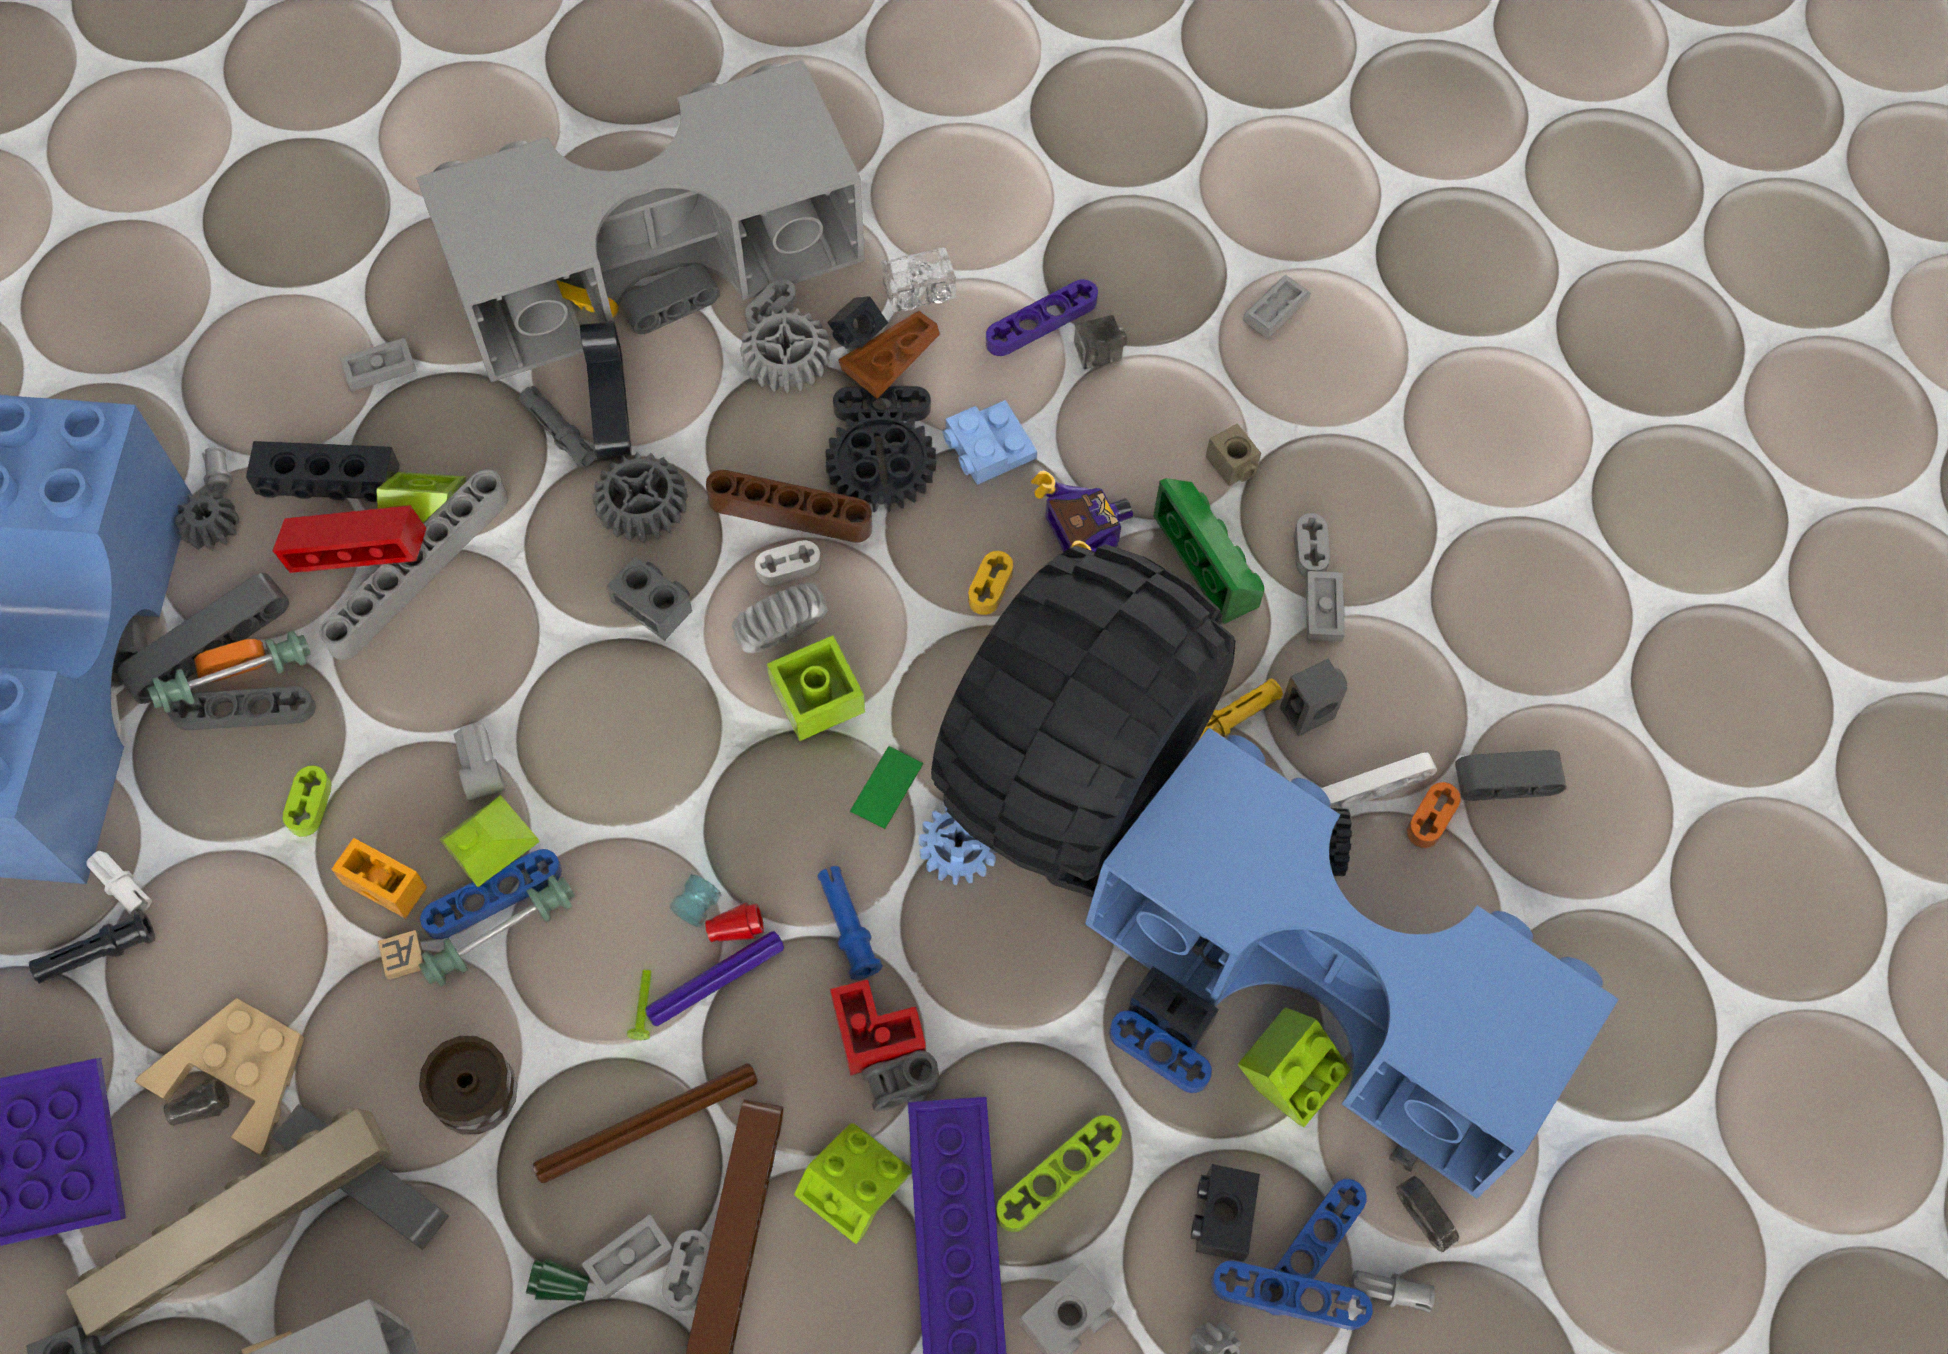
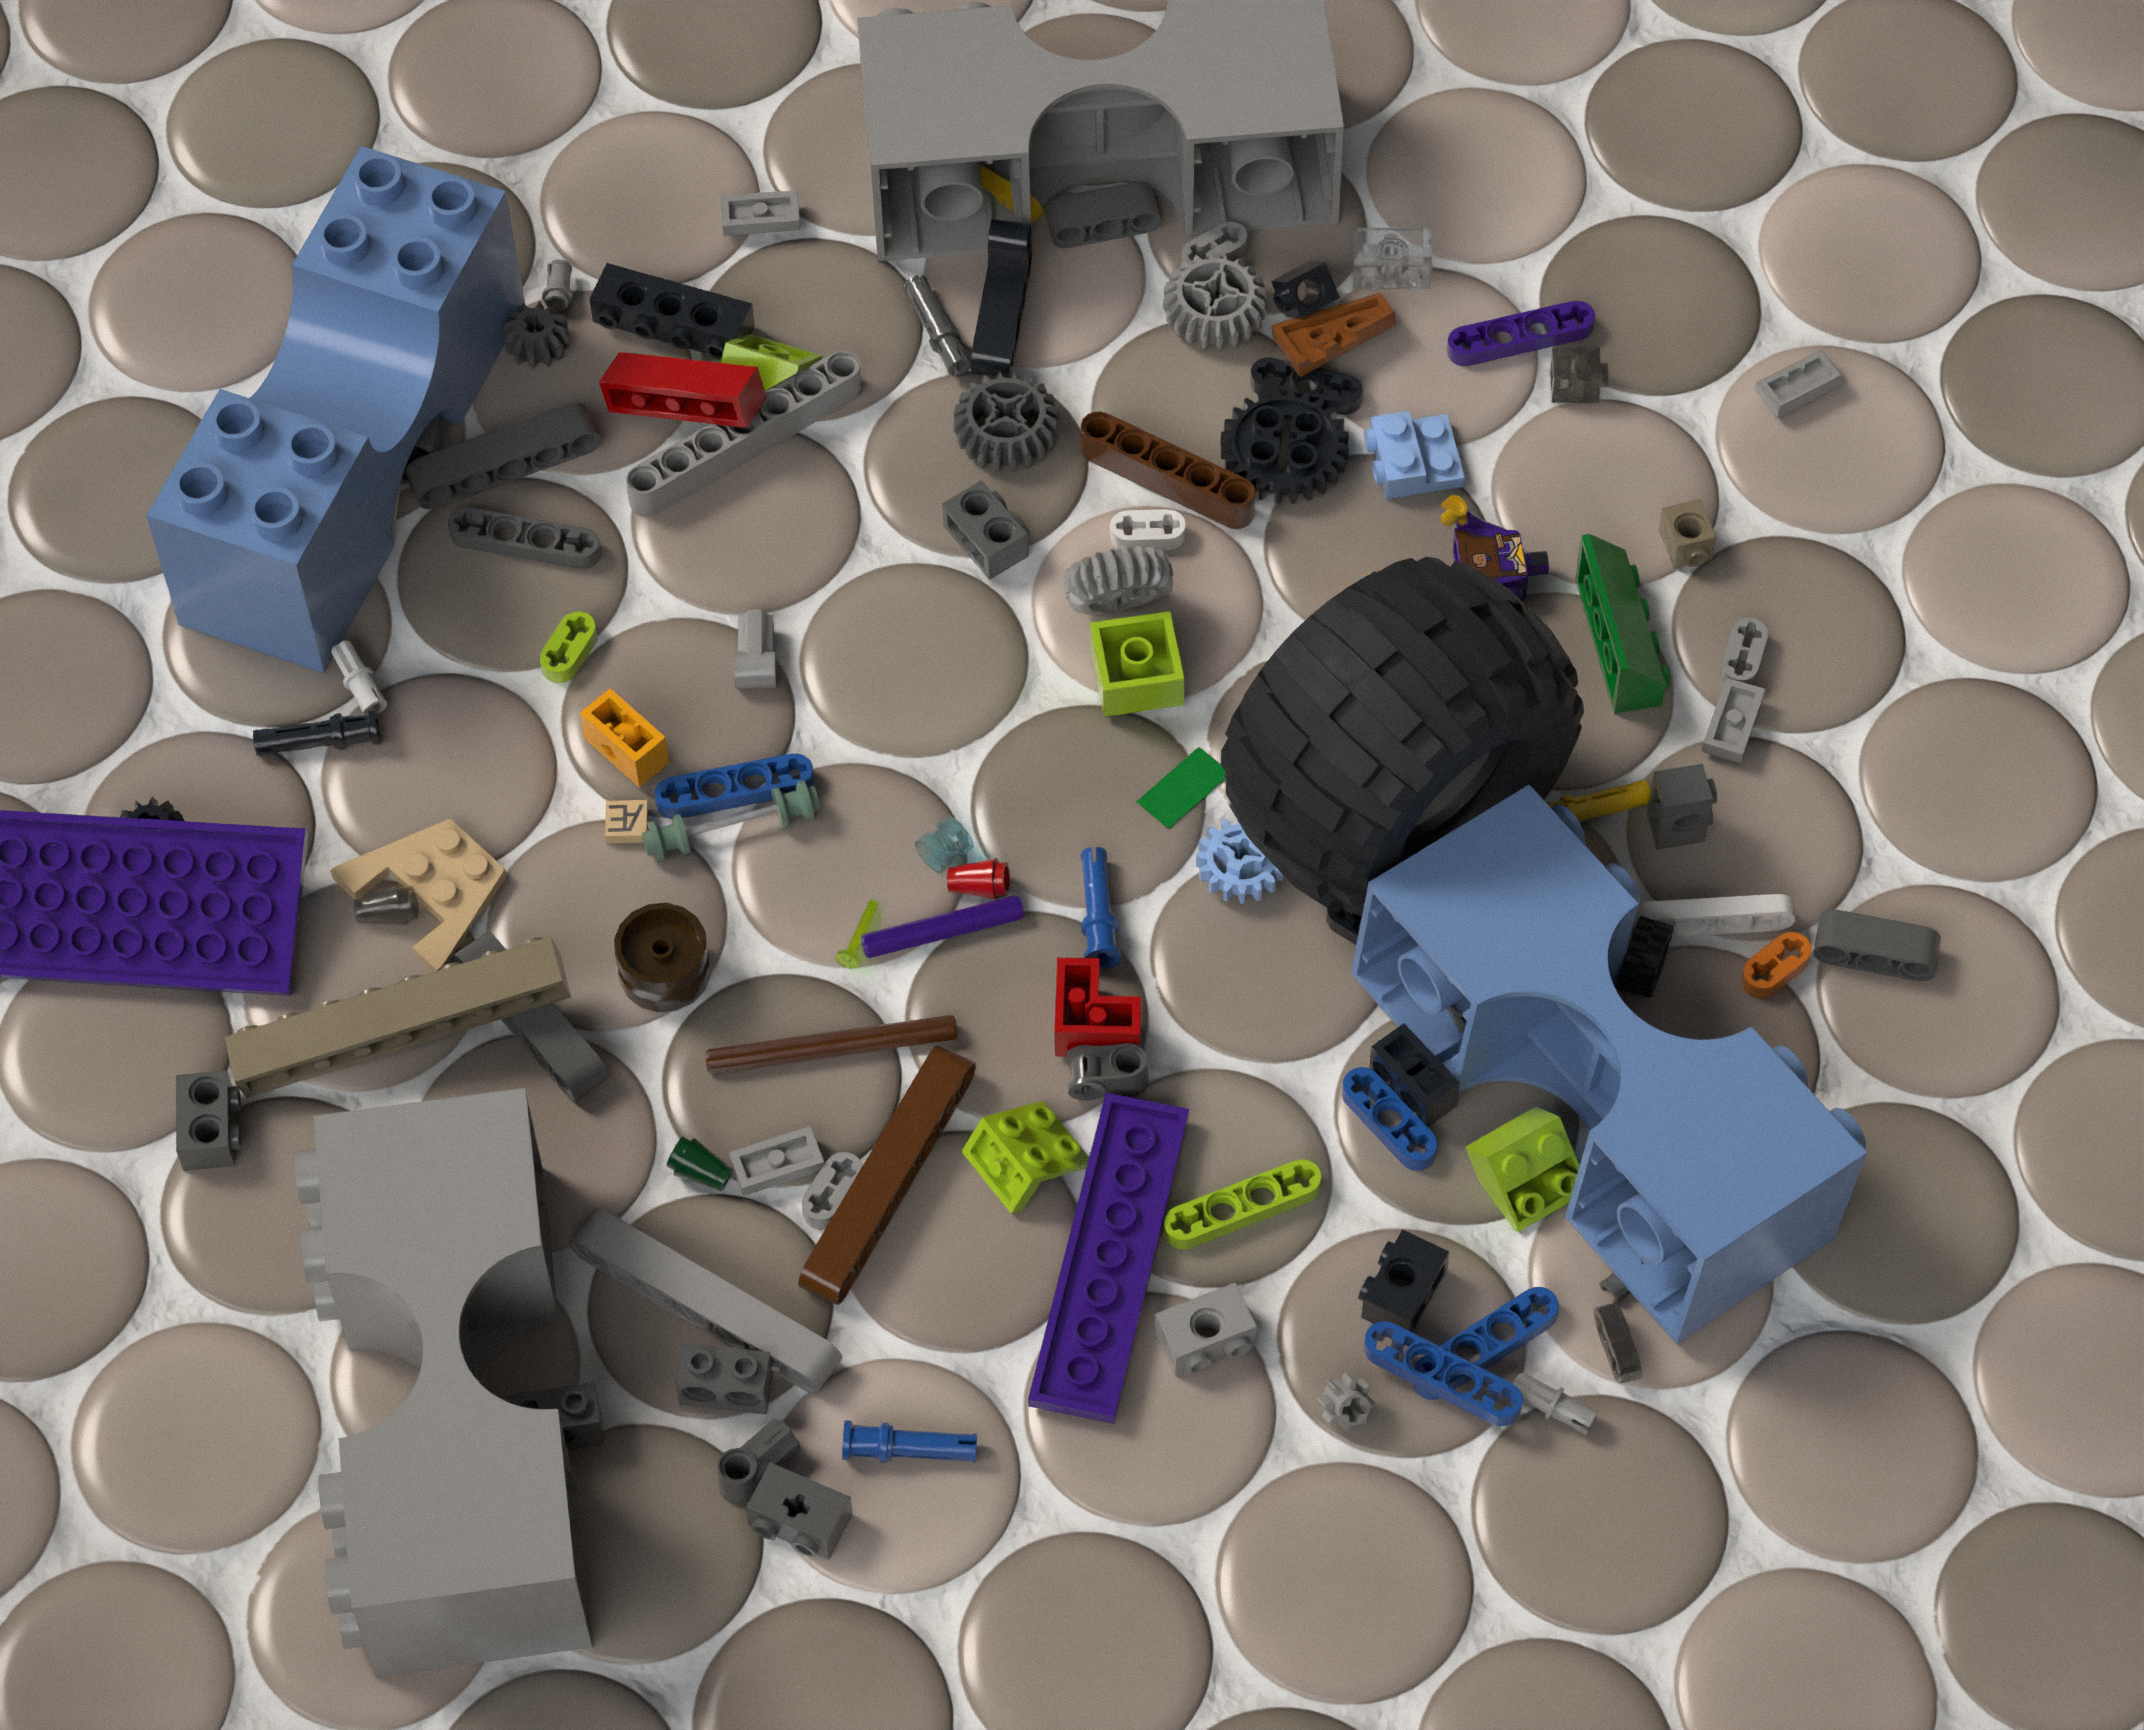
camera: 20 degrees right, 5 degrees down
(177, 689) = (592, 490): sand green axle -> none
(229, 656) = (525, 485): orange beam -> none
(489, 840) = (745, 731): lime slope -> none

